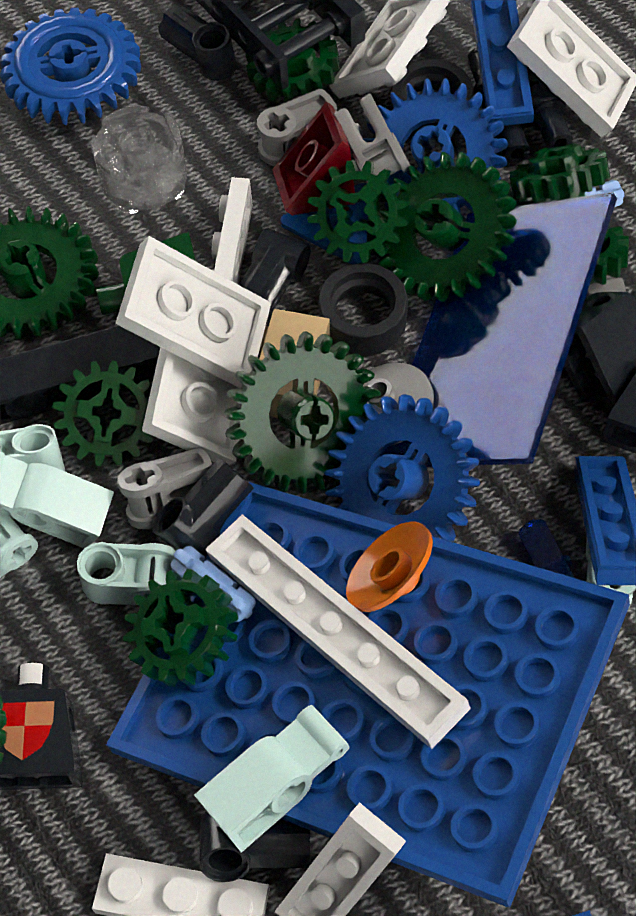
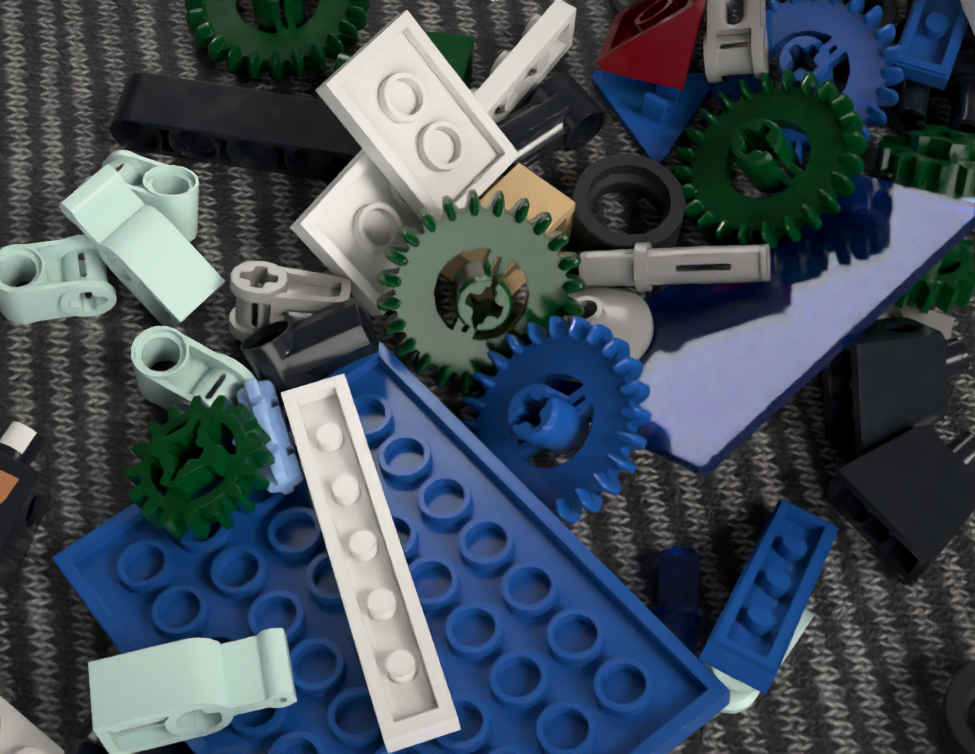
camera: 20 degrees right, 0 degrees up
(83, 410) = (250, 214): dark green gear -> none
(346, 228) = (698, 85): dark green gear -> none
(389, 567) = (466, 515): orange dish -> none
(422, 330) = (663, 266): none -> light grey pin

